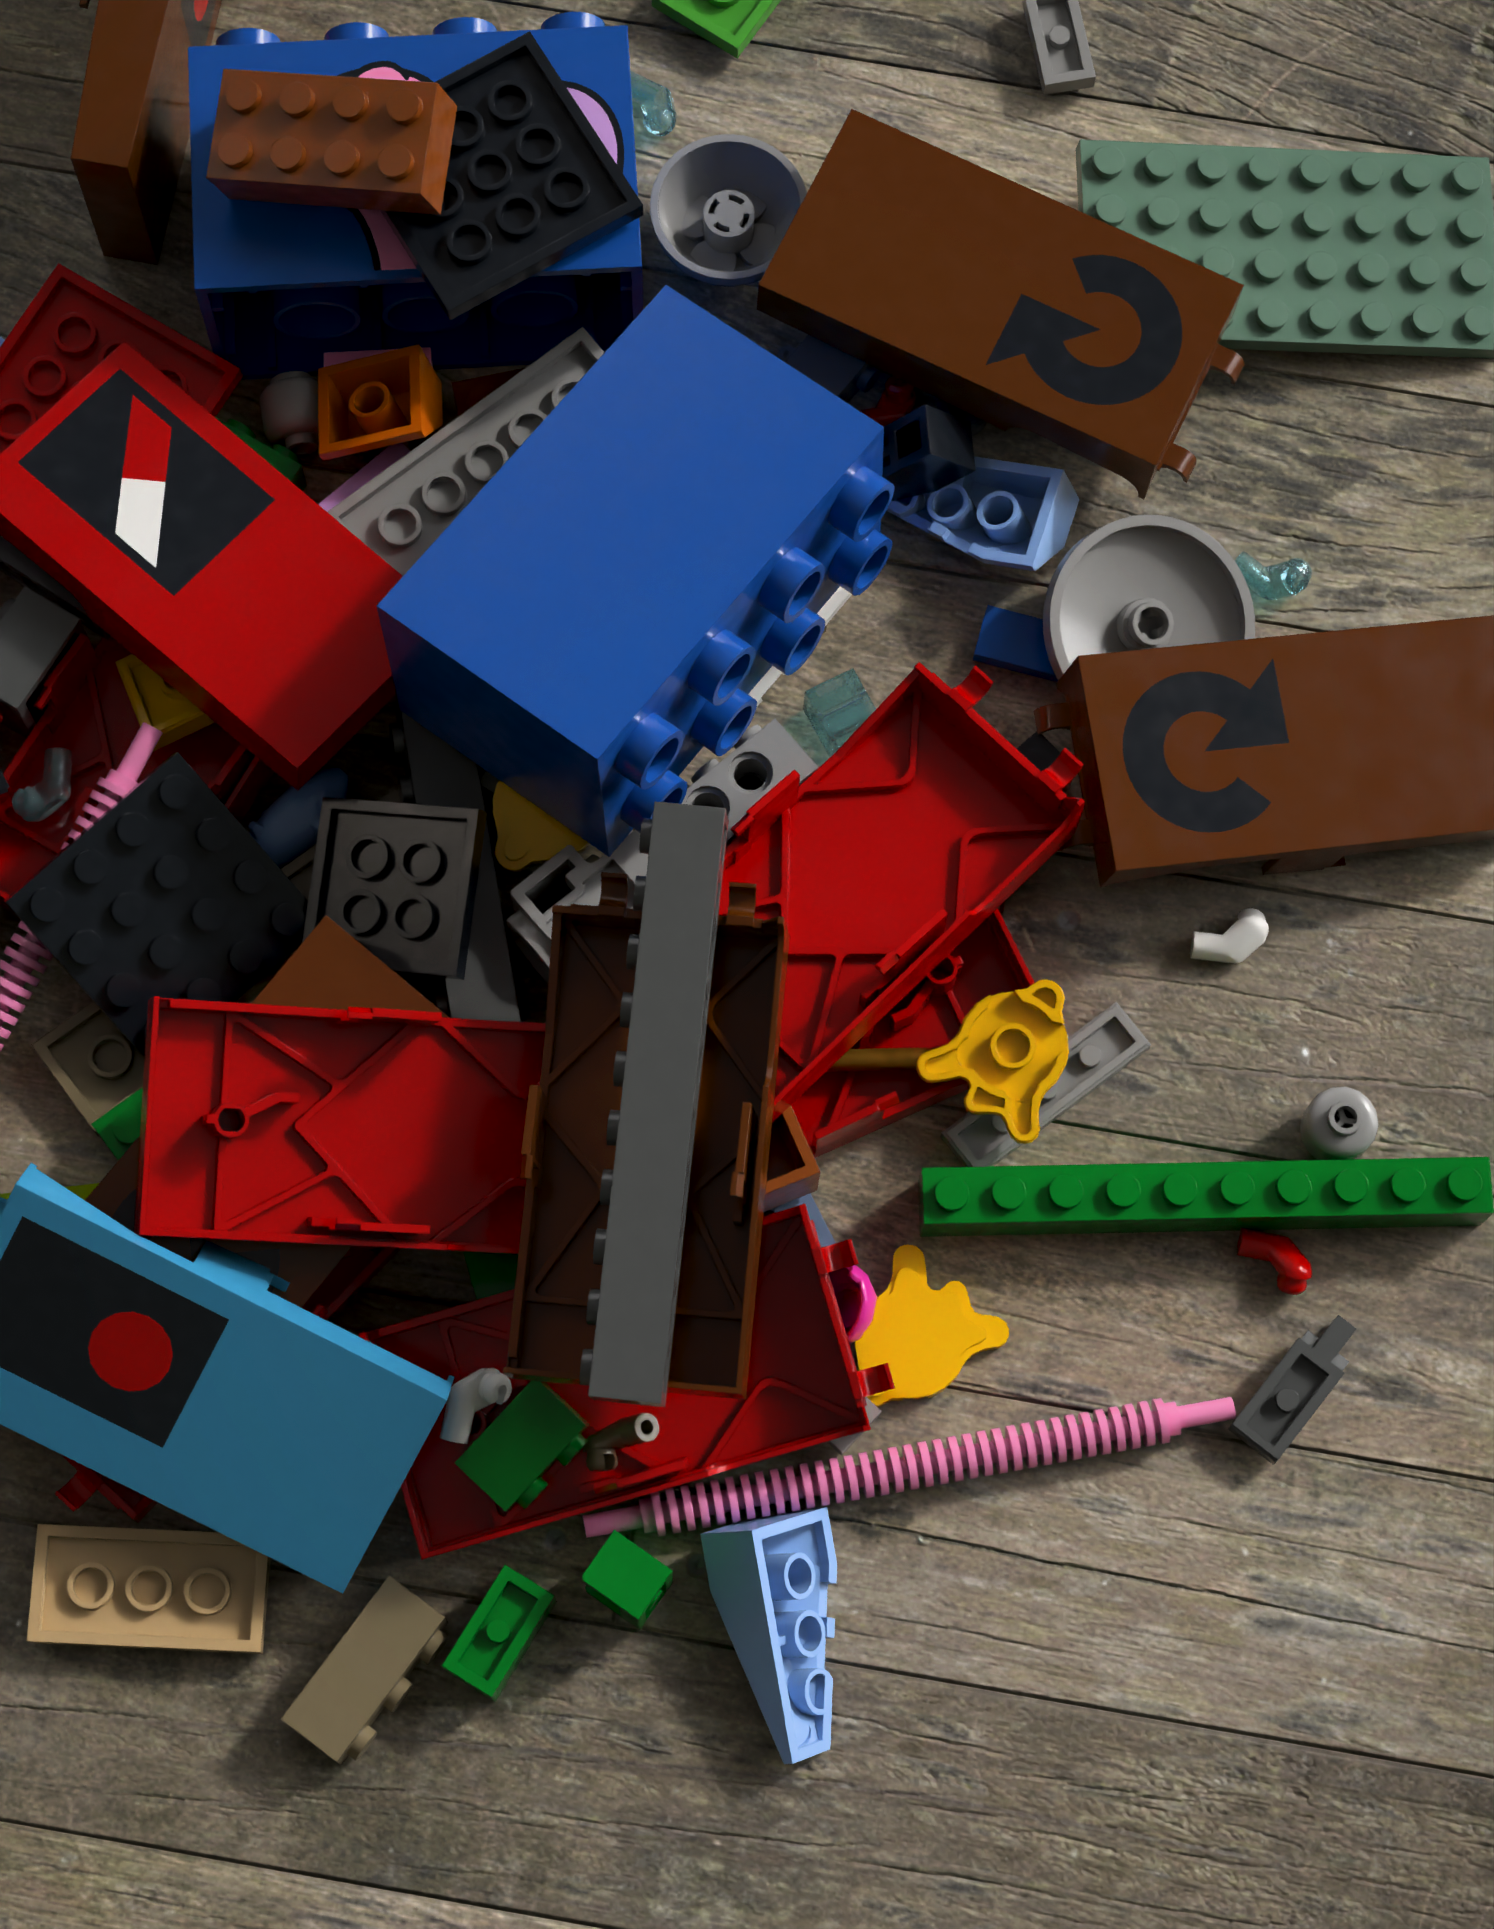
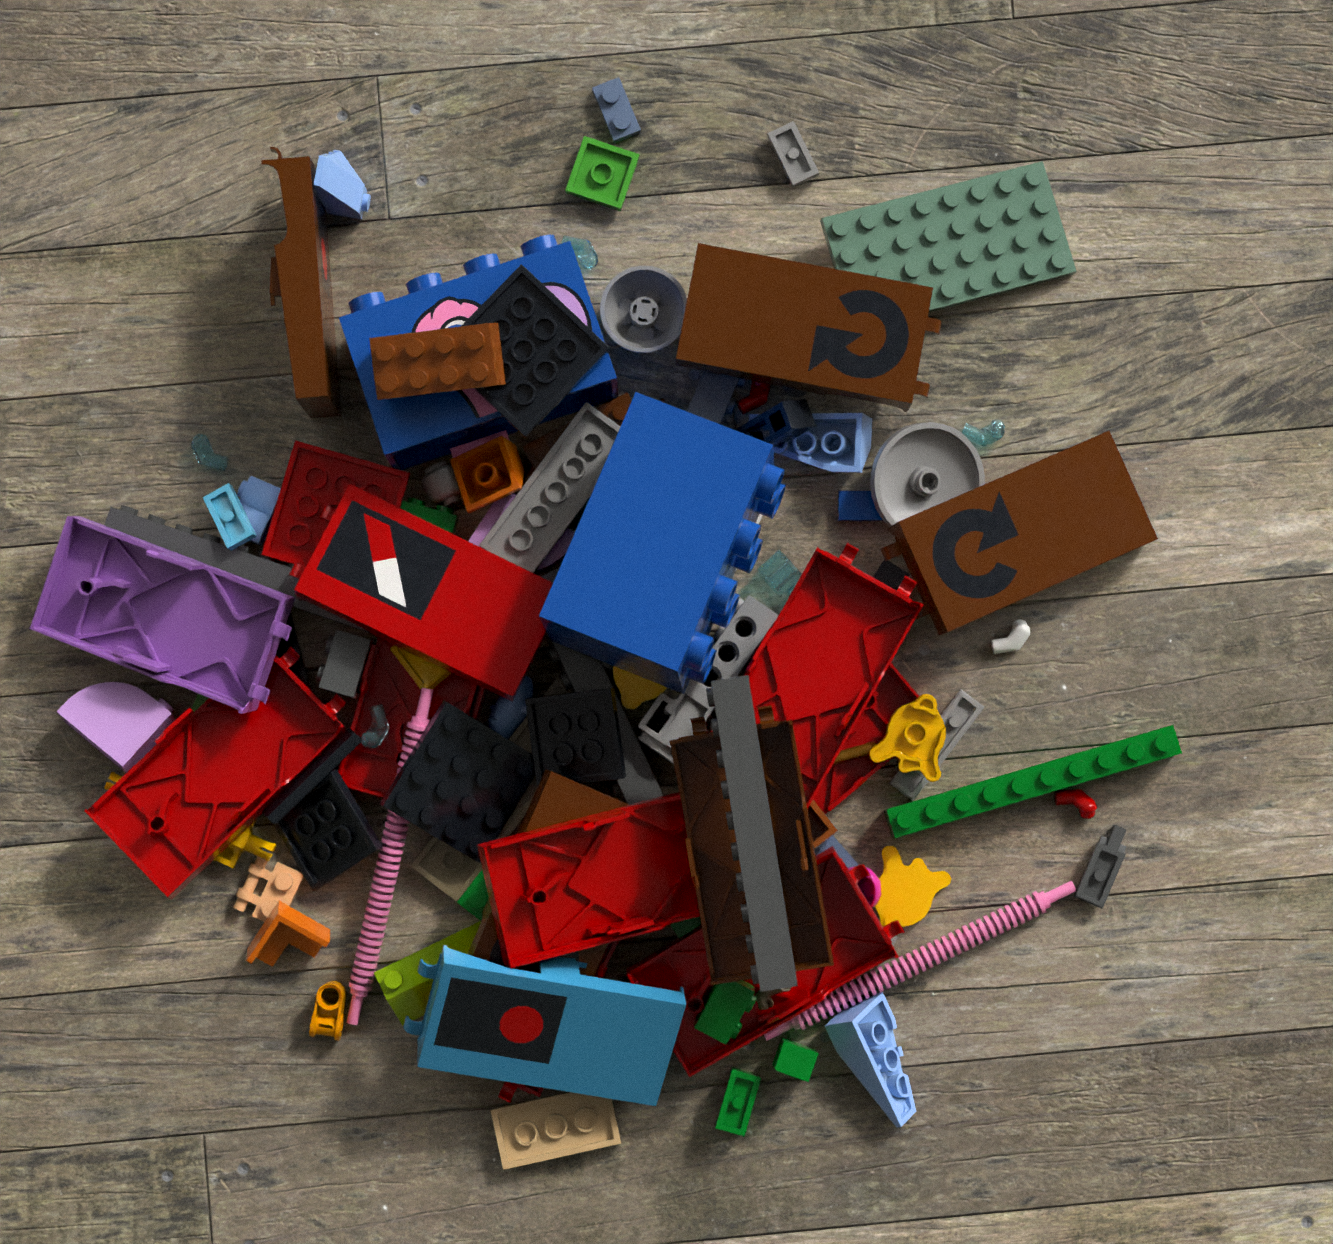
camera: 15 degrees left, 10 degrees up
(367, 1672) = (677, 1138): dark tan brick -> none
(470, 1396) = (694, 990): white arm -> none
(1328, 1139) = (1082, 730): light grey head -> none

